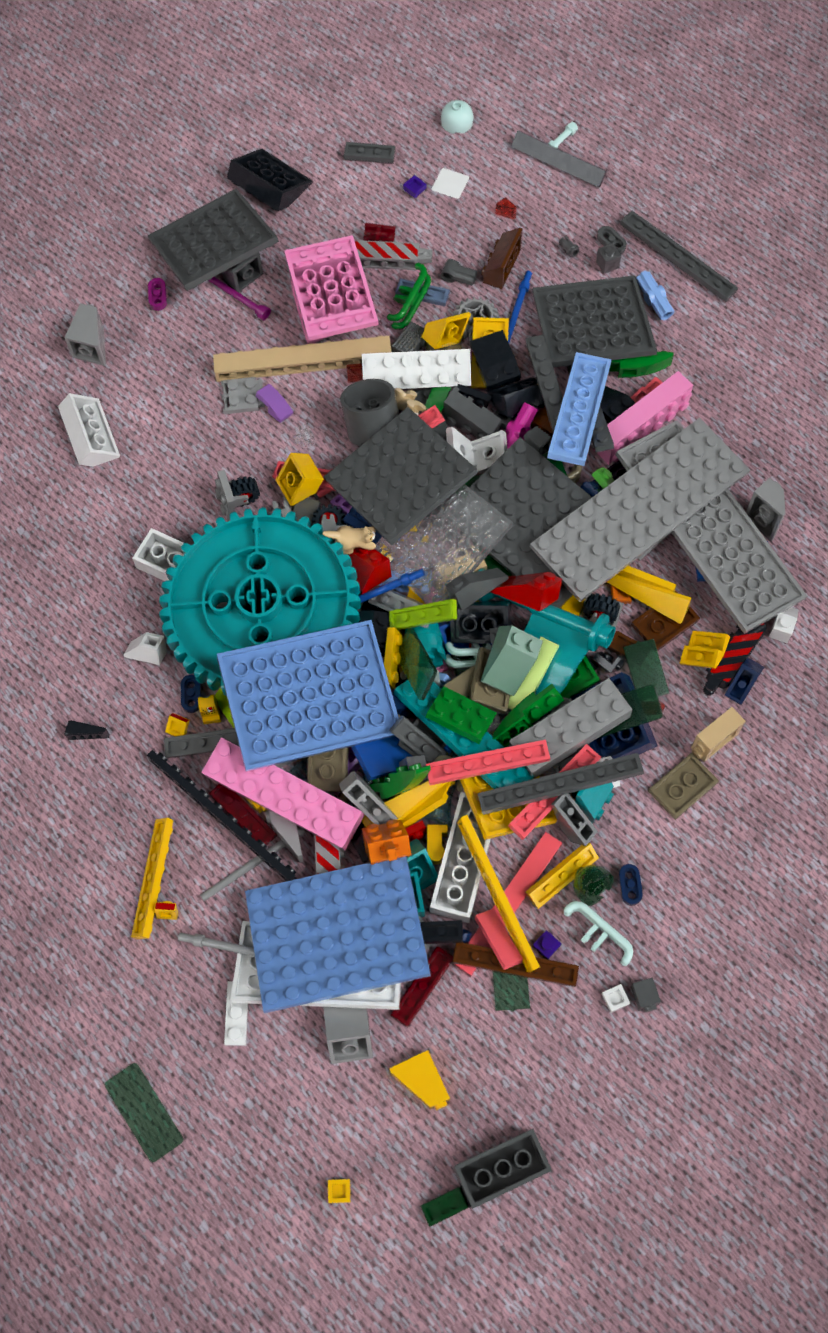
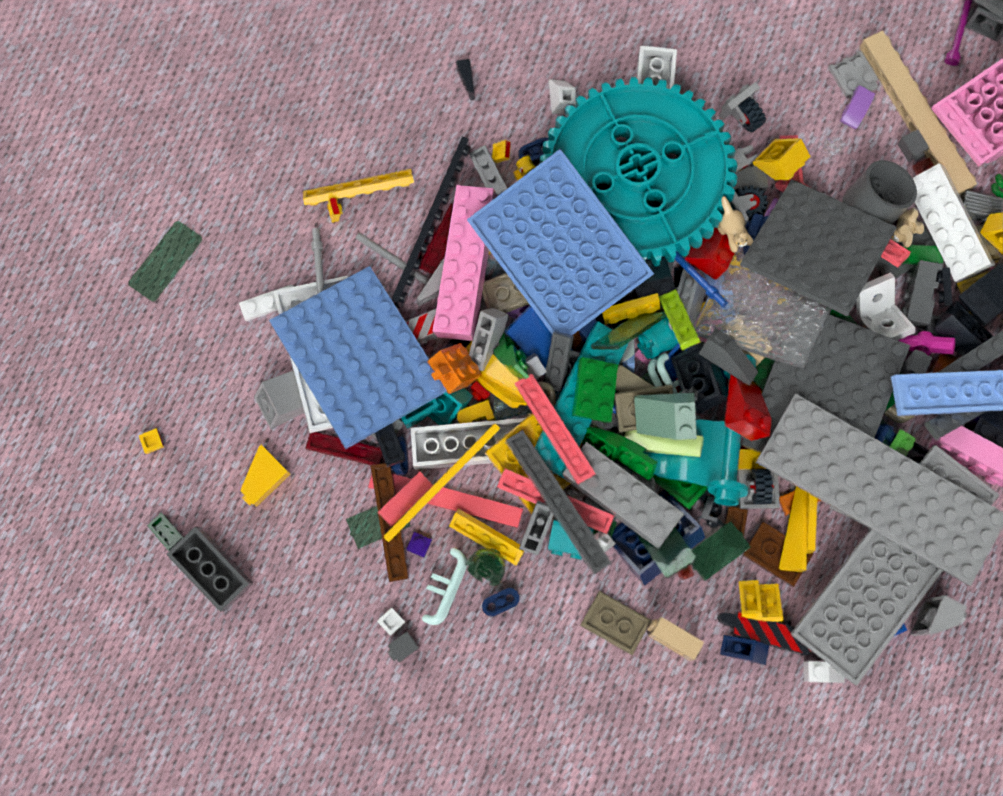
camera: 70 degrees right, 10 degrees up
(331, 372) = (913, 146): none -> dark grey brick

